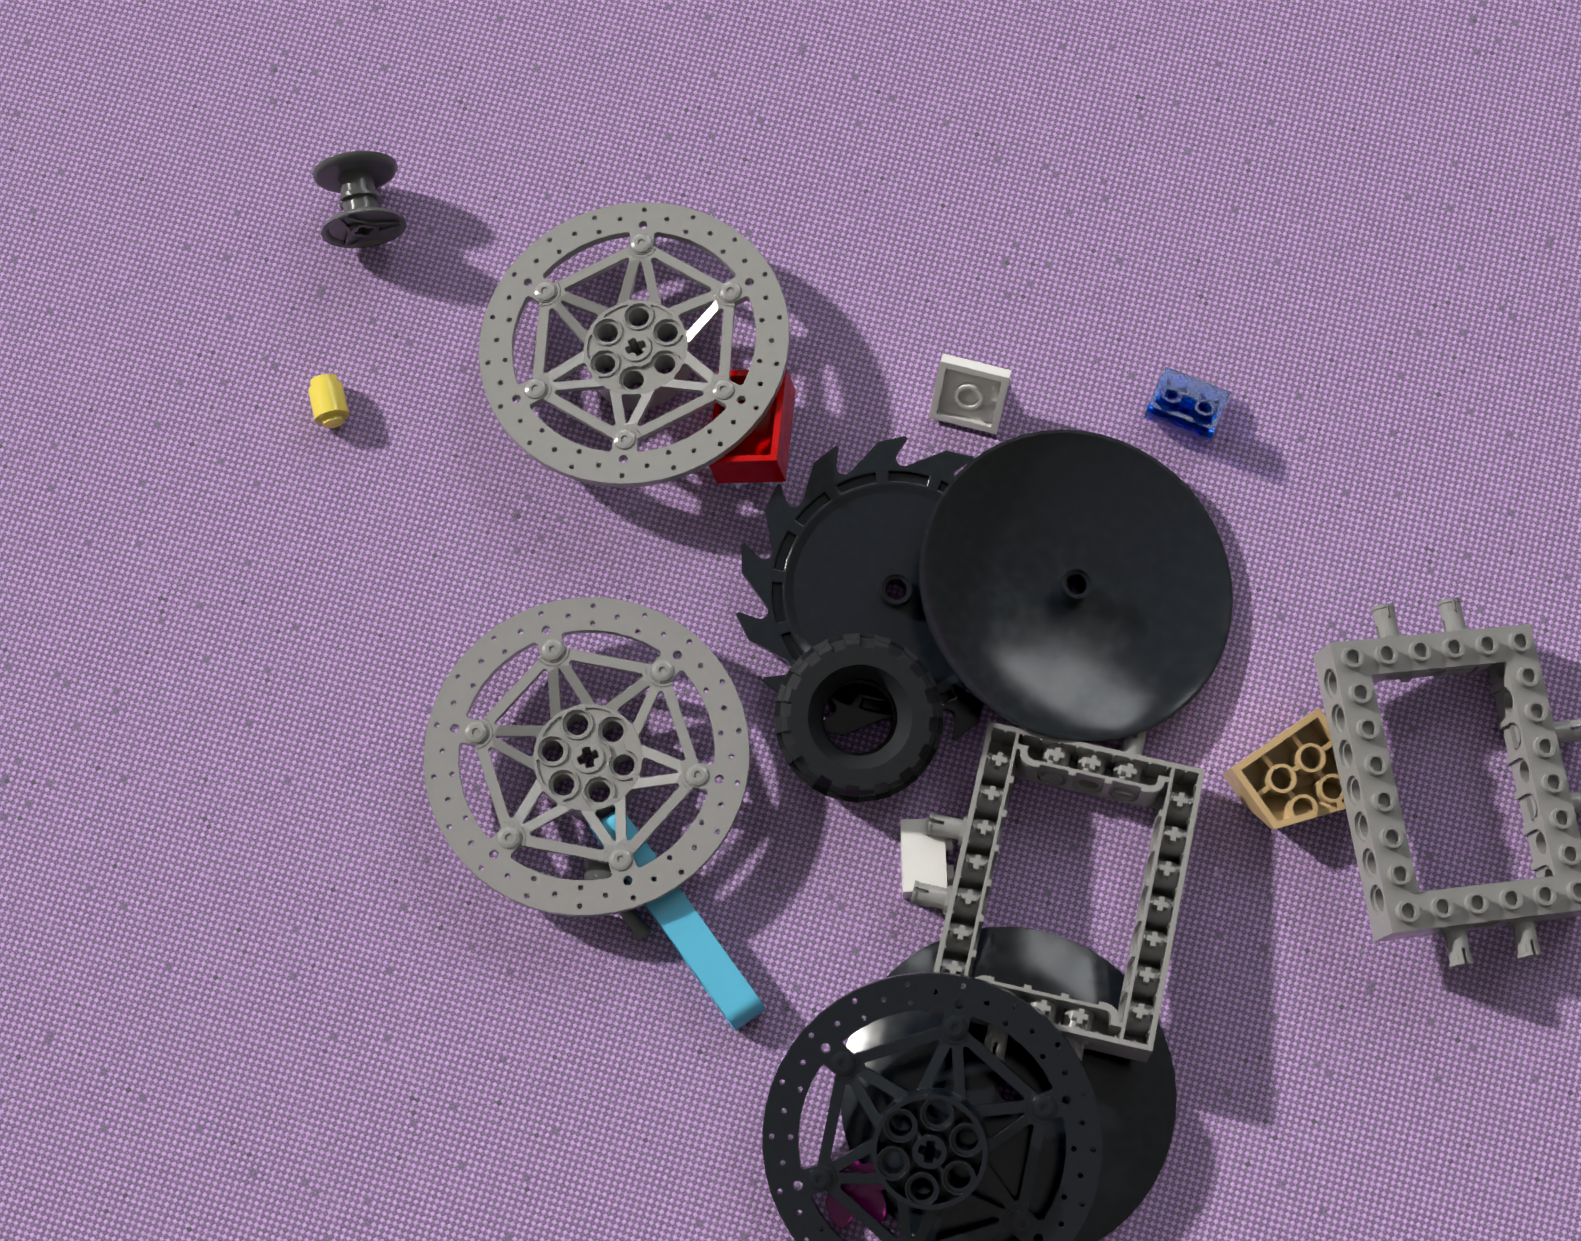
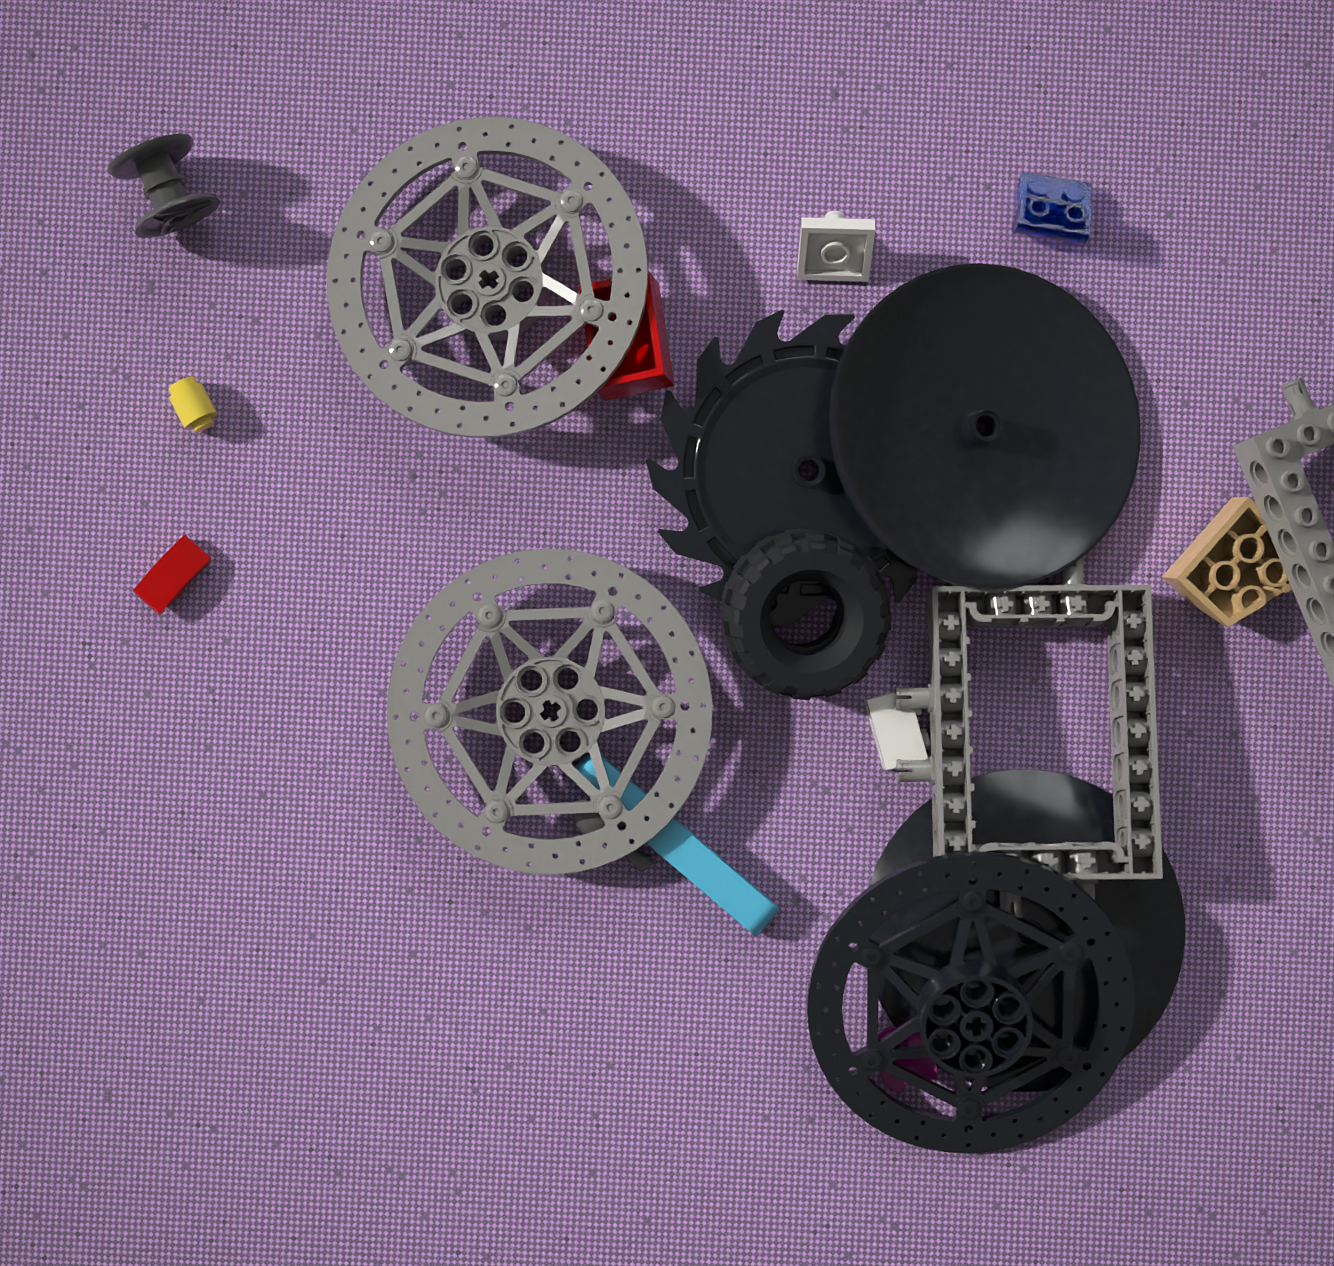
camera: 20 degrees left, 15 degrees up
(262, 550) = (172, 574): none -> red slope

